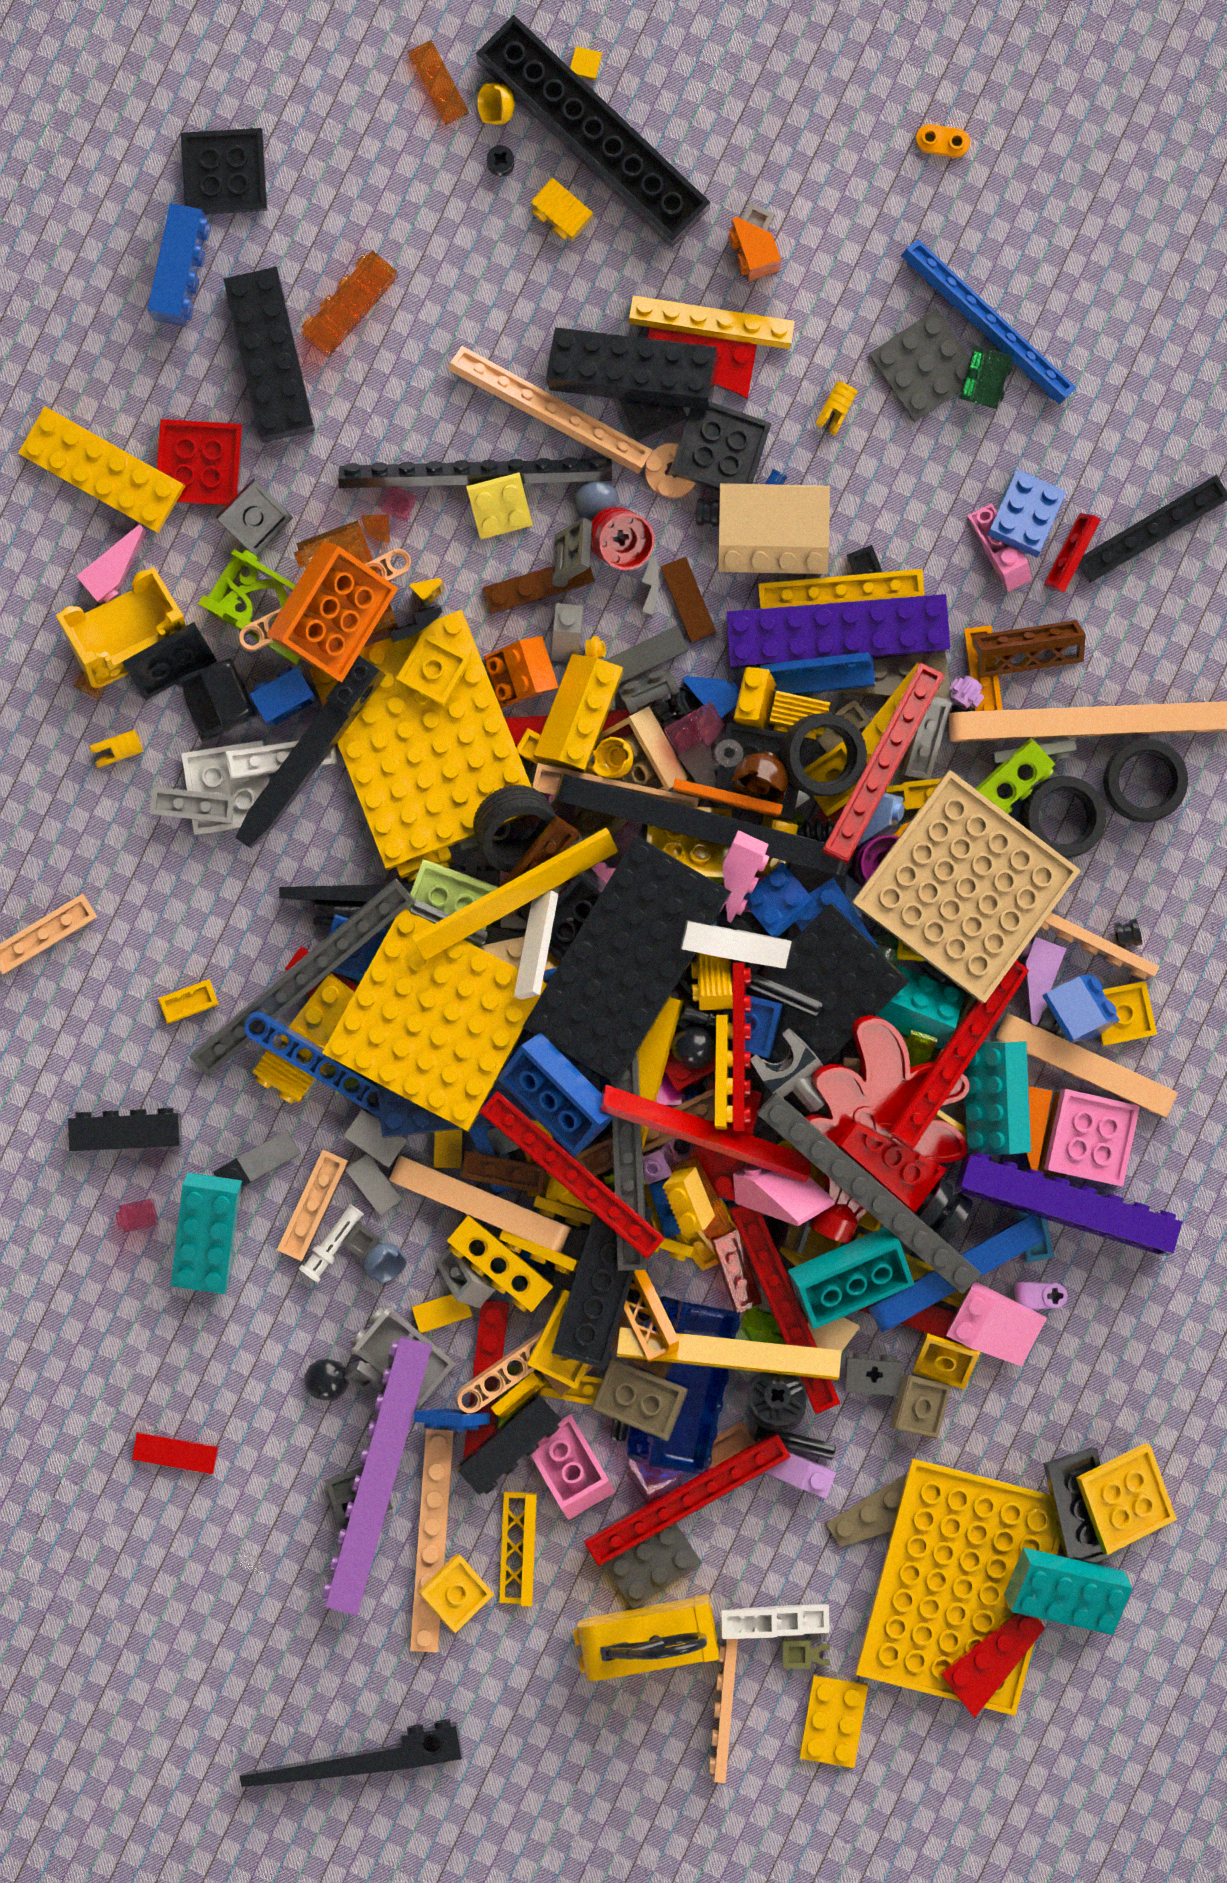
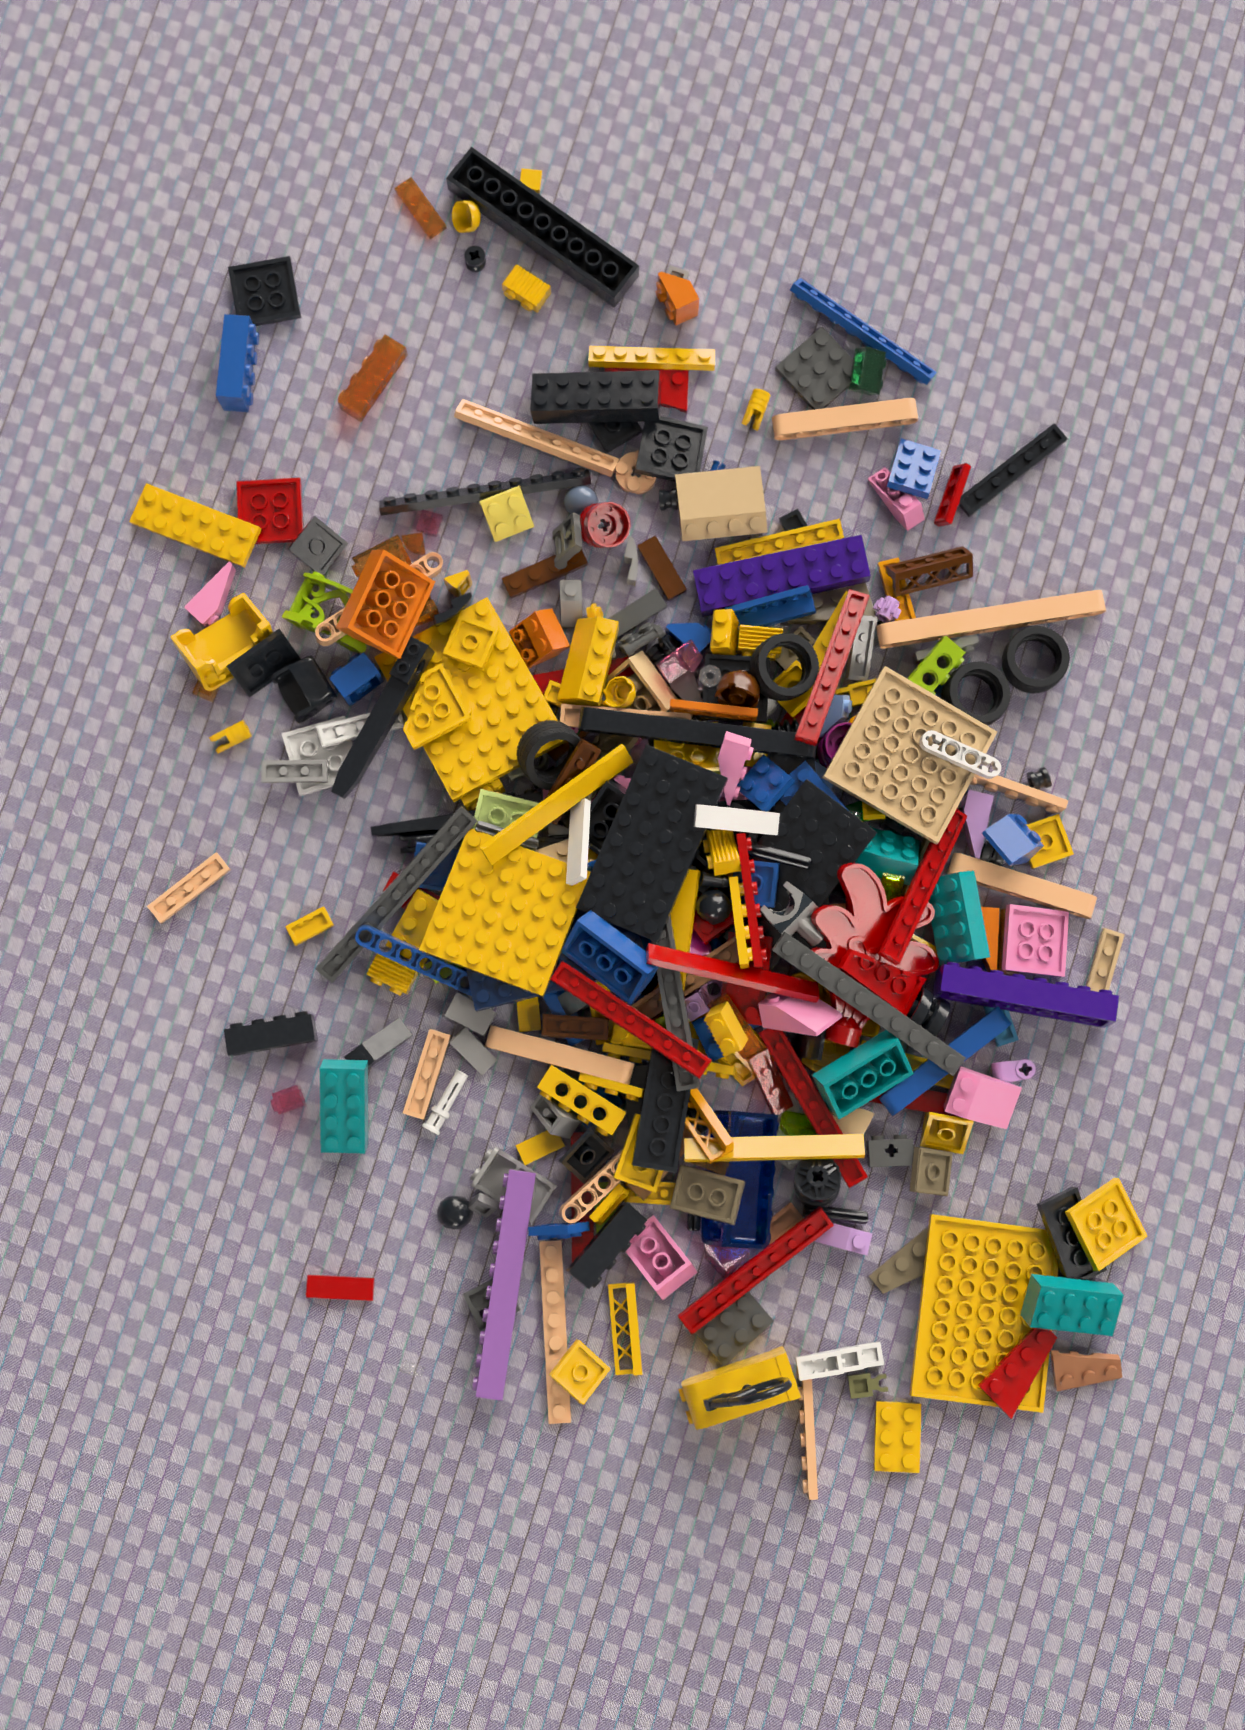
camera: 10 degrees left, 5 degrees down
(269, 354) = (315, 423): black brick -> none
(361, 1240) = (469, 1097): flat silver plate -> none
(377, 749) = (434, 708): none -> yellow plate
(384, 1262) = (489, 1112): sand blue hair -> none
(402, 1756) = (549, 1513): black piece -> none
(497, 1332) = (586, 1155): none -> black slope
(943, 141) = (809, 206): light orange plate -> none
(949, 435) = (844, 419): none -> light nougat beam
(1026, 899) = (959, 757): none -> white beam
(1068, 1670) = (1080, 1370): none -> nougat wing
(1176, 1173) = (1105, 960): none -> tan tile

